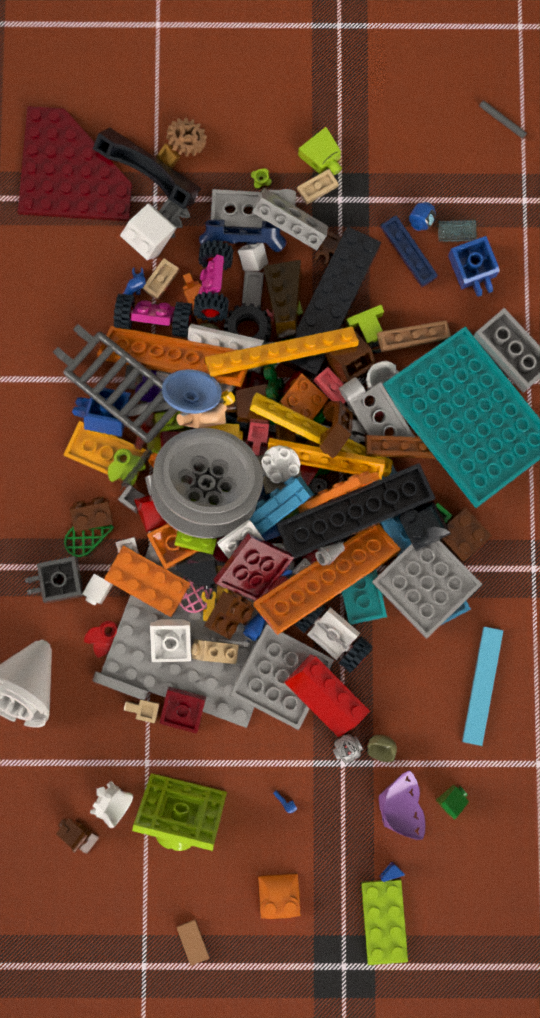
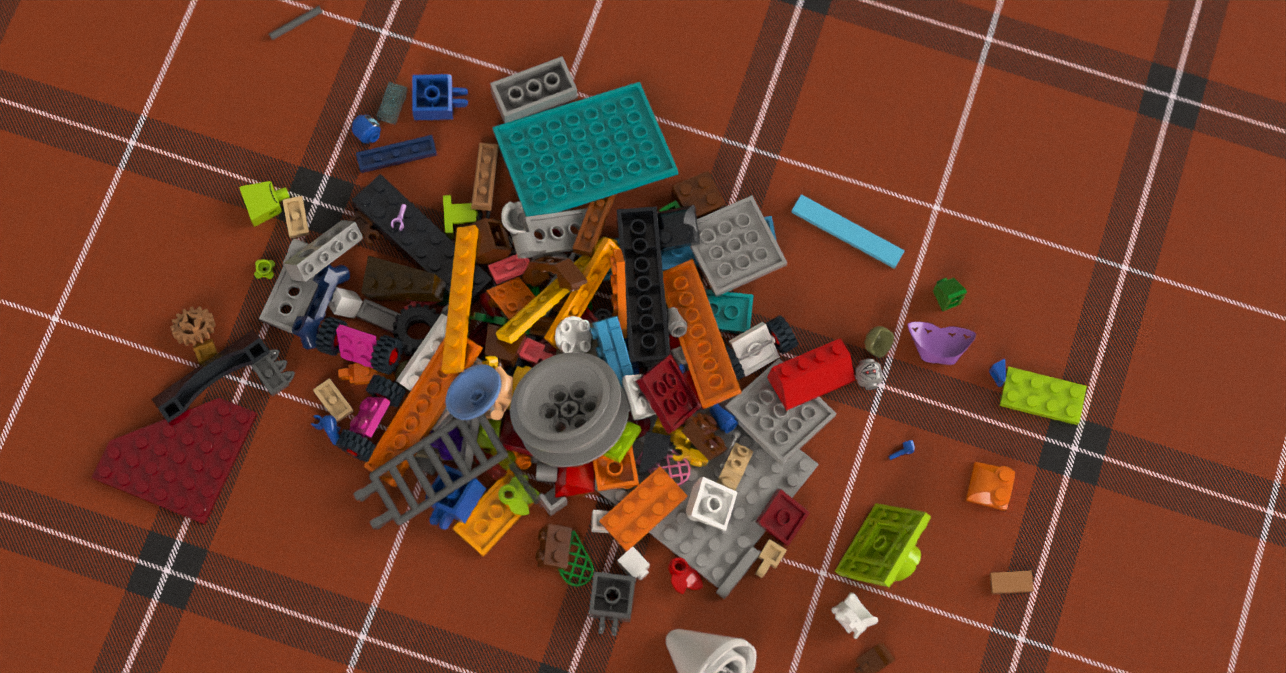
camera: 75 degrees left, 10 degrees down
(148, 232) = (281, 394): white slope -> none
(342, 272) = (399, 218): none -> lavender hand

